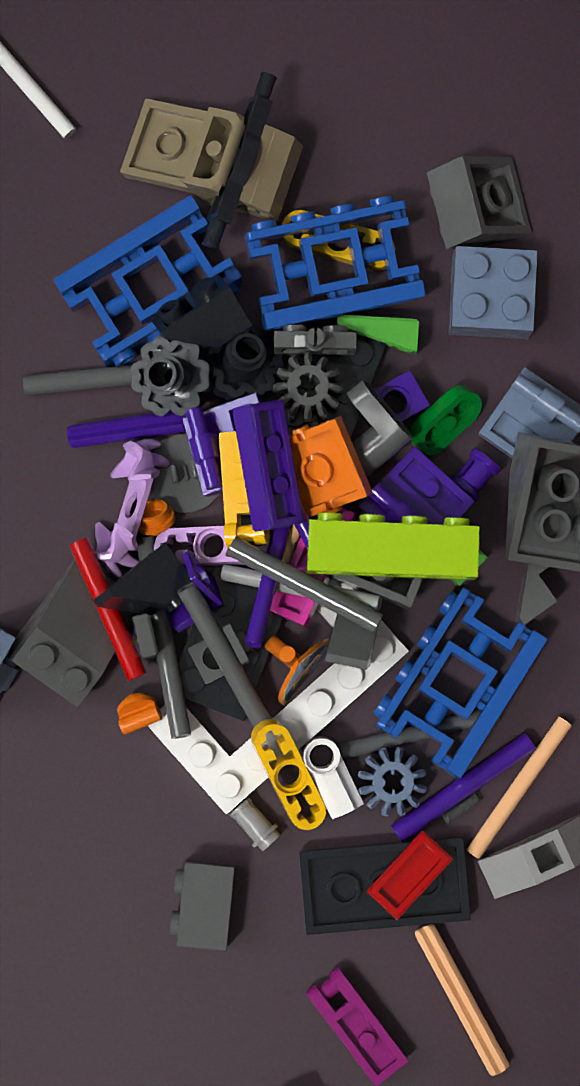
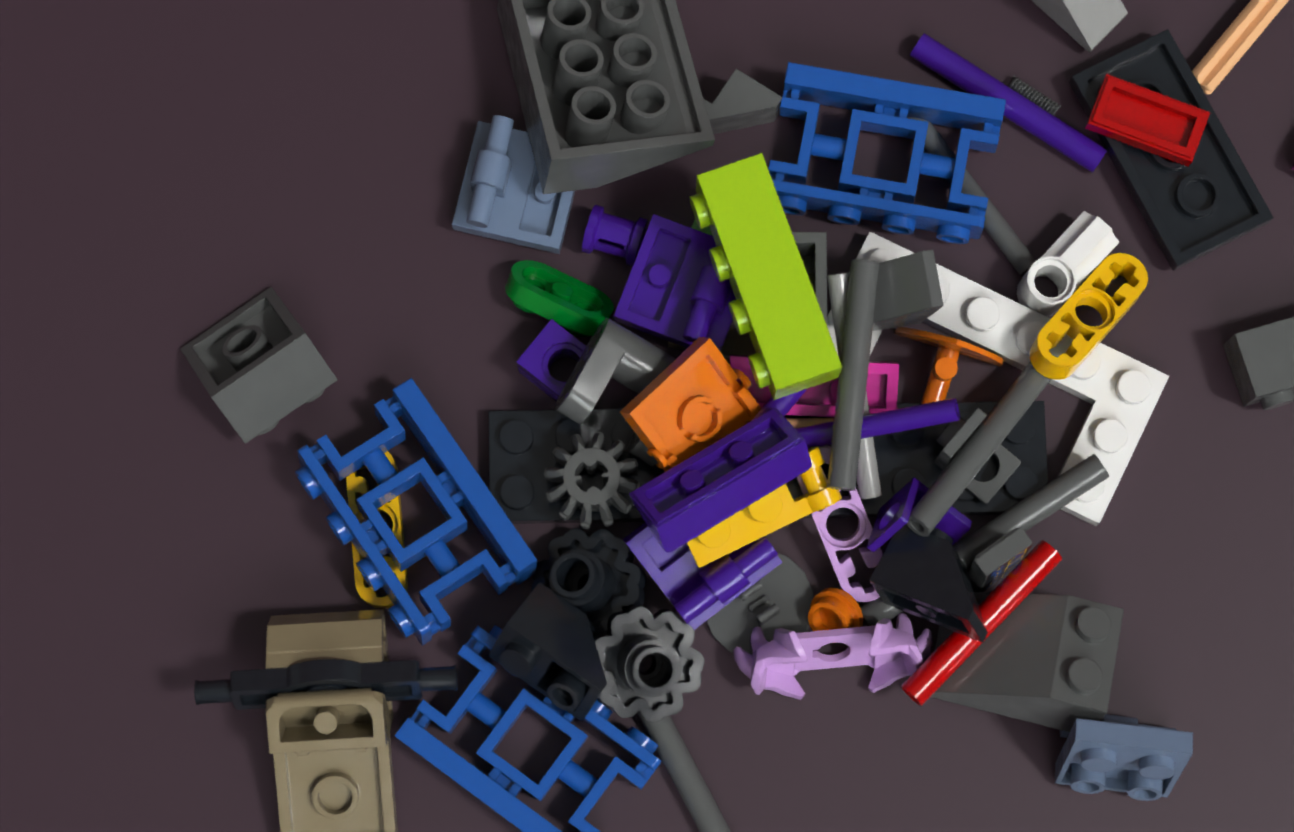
camera: 110 degrees left, 5 degrees down
(123, 429) = (737, 707): dark purple axle -> none
(137, 712) = (1091, 536): orange plate -> none
(255, 824) = (1166, 334): light grey pin -> none
(330, 341) = (517, 473): dark grey plate -> none
(395, 332) = (472, 410): bright green slope -> none
(405, 780) = (1020, 182): sand blue gear -> none
(492, 292) = (371, 300): sand blue brick -> none
(518, 787) = (980, 37): light nougat piece -> none

